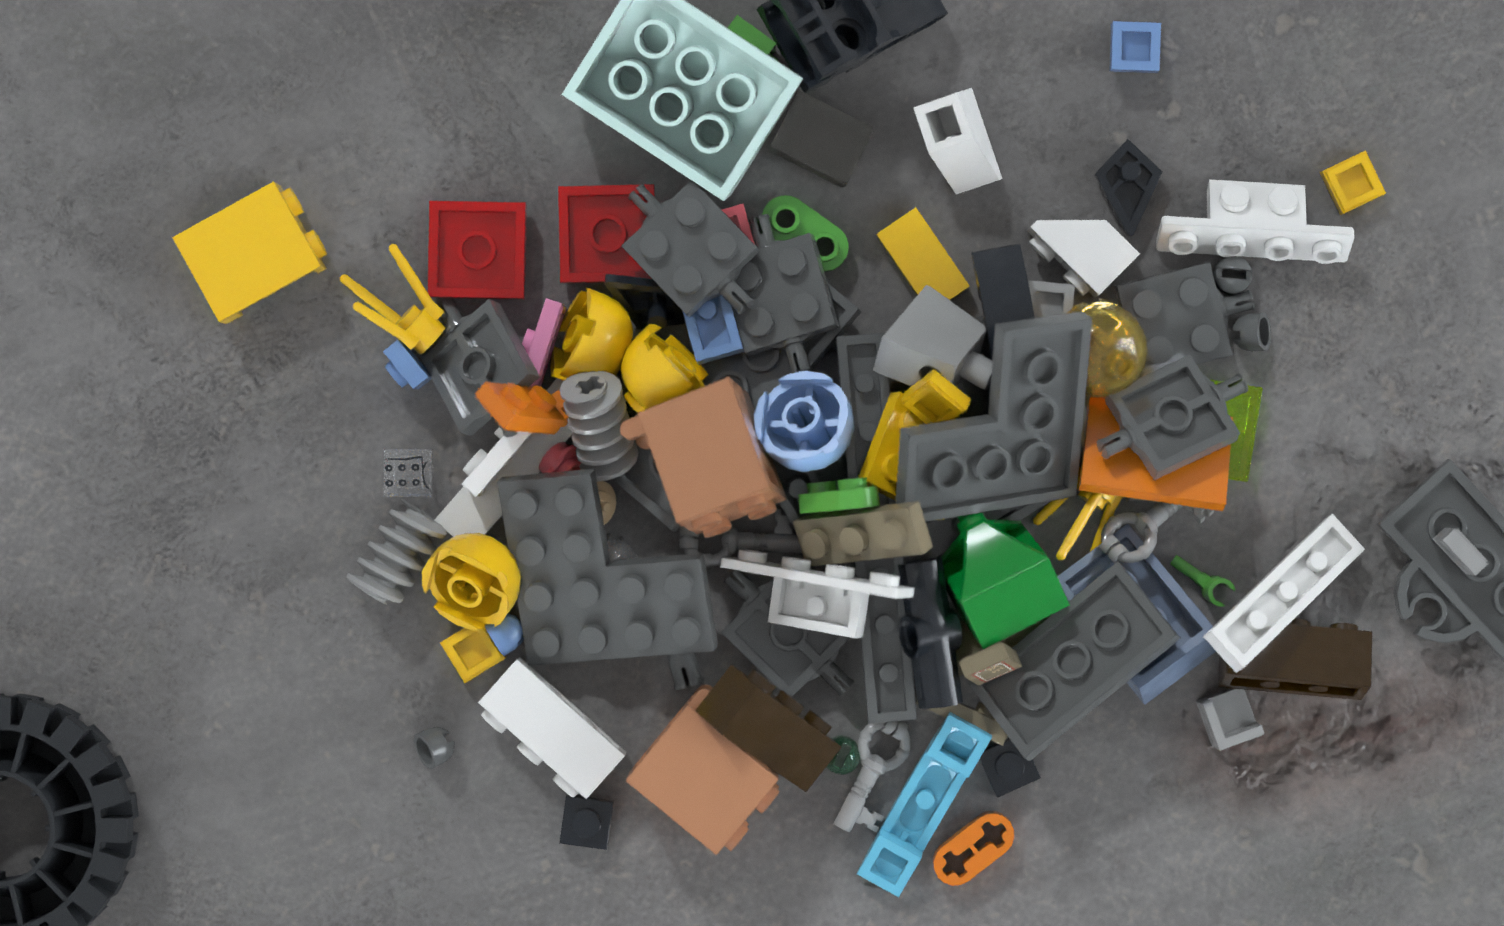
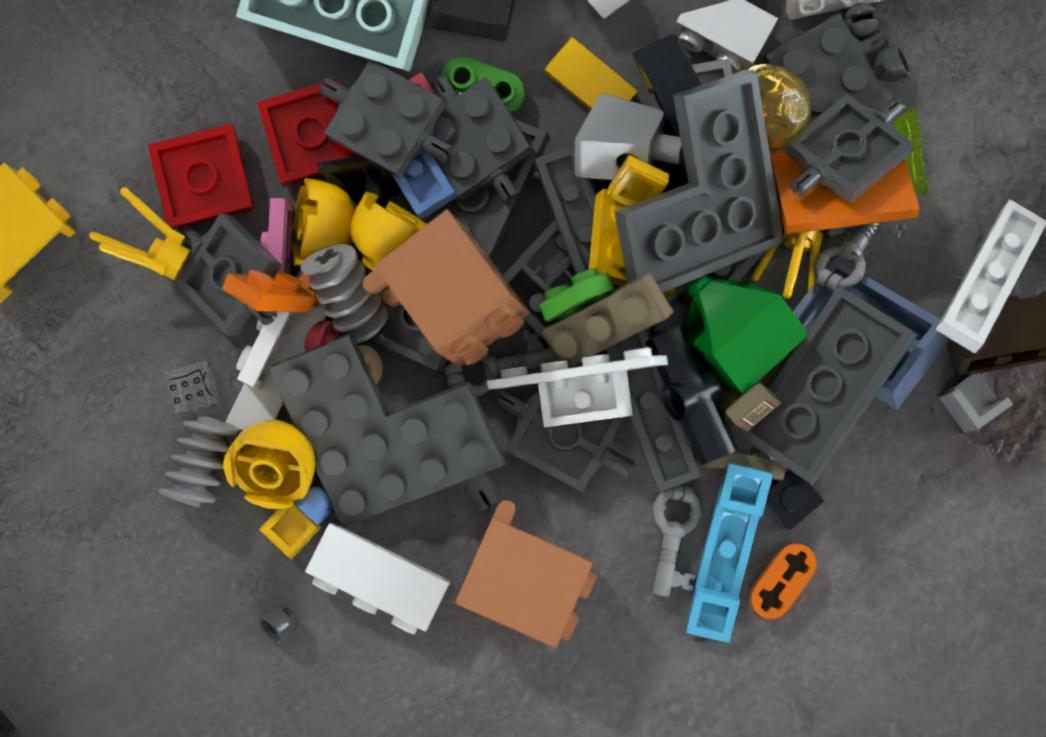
camera: 15 degrees left, 5 degrees down
(405, 366) = (164, 294): medium blue plate -> none
(586, 822) = (432, 653): black plate -> none
(770, 726) = (571, 518): dark brown brick -> none
(804, 421) = (527, 236): light blue cylinder -> none
(852, 758) = (632, 528): clear green hinge -> none
(1203, 580) = (918, 291): bright green hand -> none

